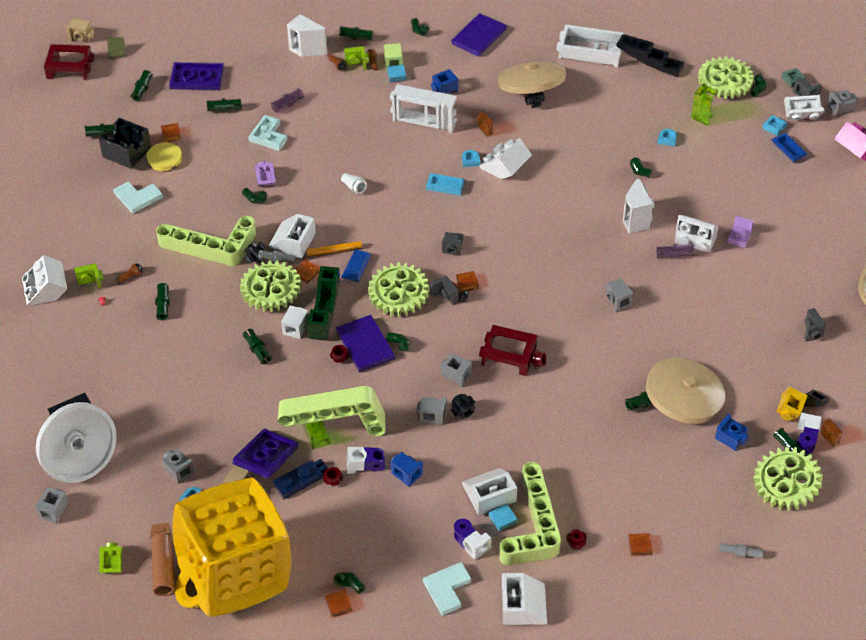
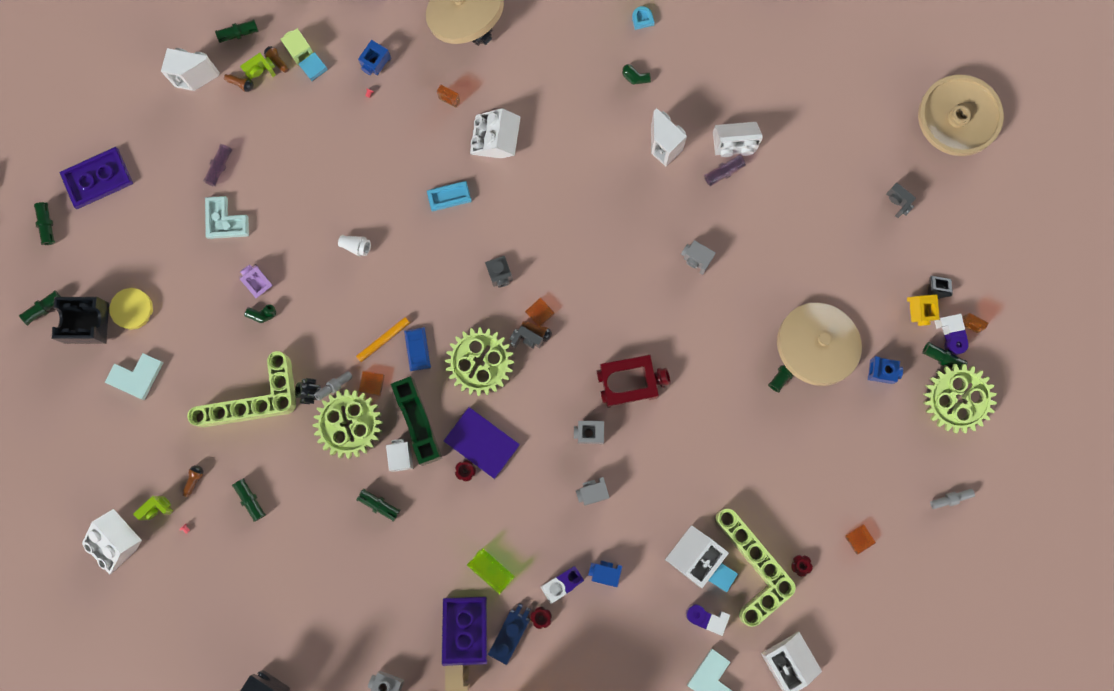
camera: 25 degrees left, 30 degrees up
(171, 132) = (117, 271): clear orange tile -> none
(224, 105) = (152, 206): dark green pin -> none
(294, 236) = (333, 350): white slope -> none
(334, 405) = (505, 559): yellowish green beam -> none
(399, 338) = (515, 421): dark green arm -> none
(423, 107) = (373, 109): white door -> none
(463, 405) = (621, 473): black gear -> none
(470, 158) = (456, 148): medium azure tile -> none
(740, 232) = (776, 113): lavender bracket -> none

